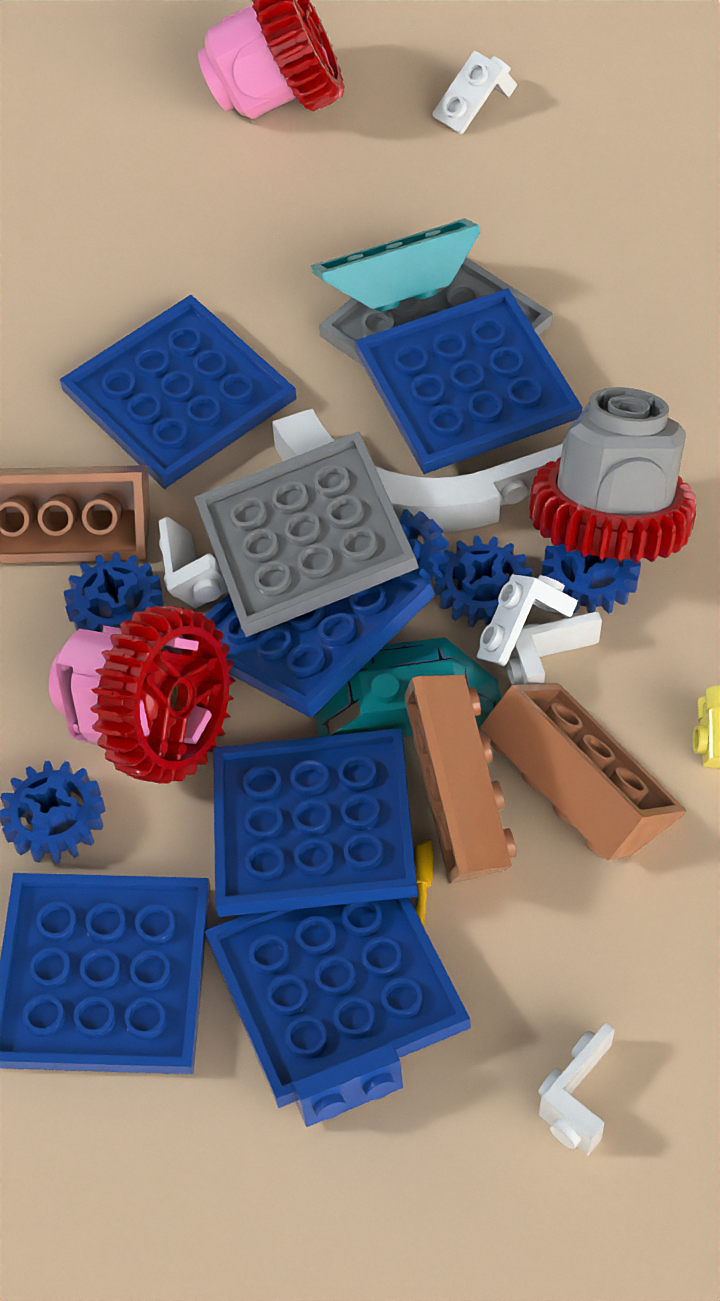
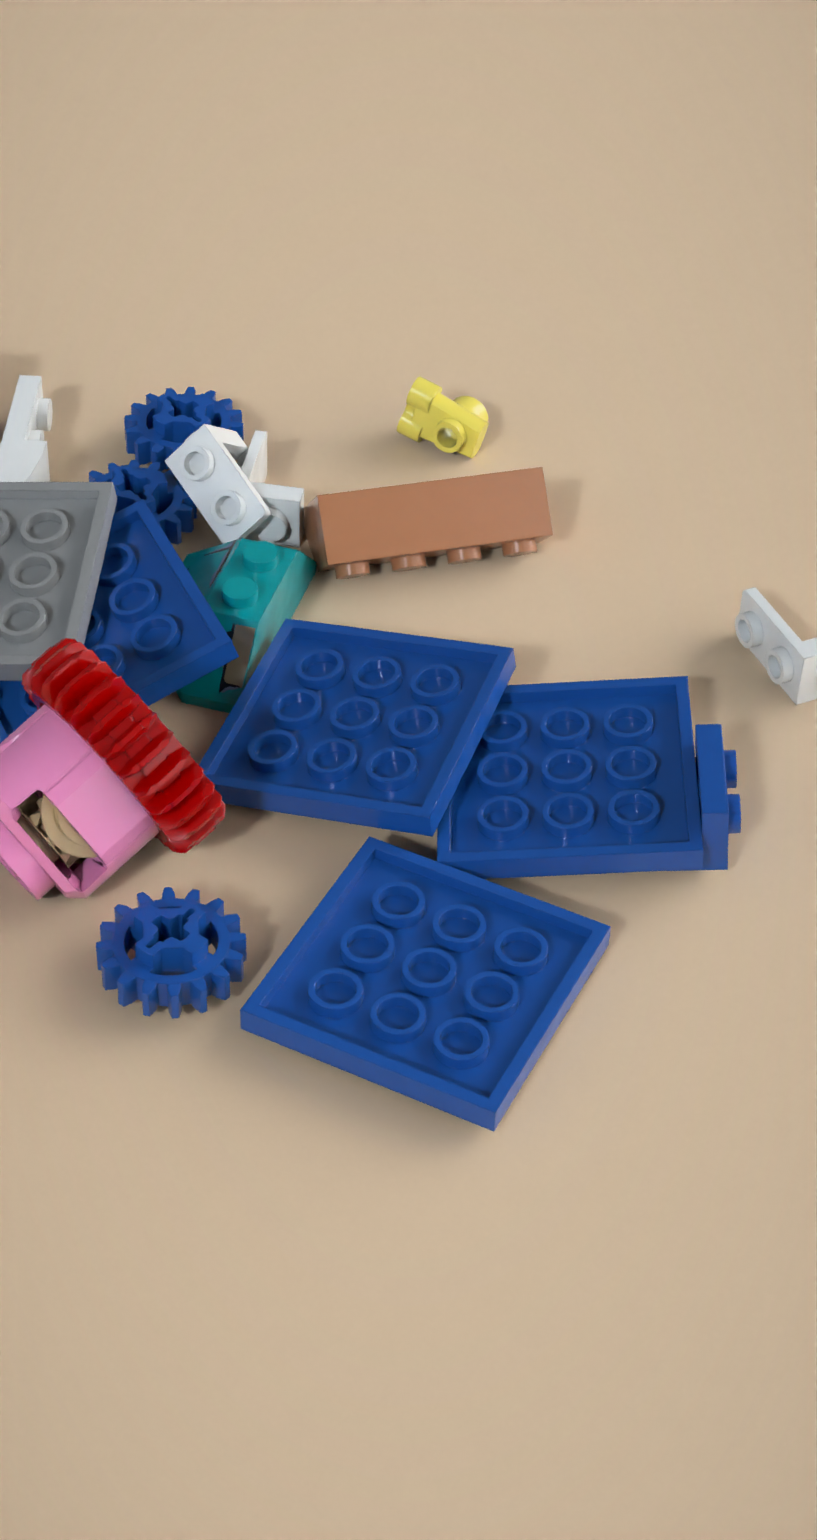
camera: 70 degrees left, 15 degrees down
(458, 777) = (394, 575): nougat slope -> none
(617, 481) = (122, 331): piece -> none

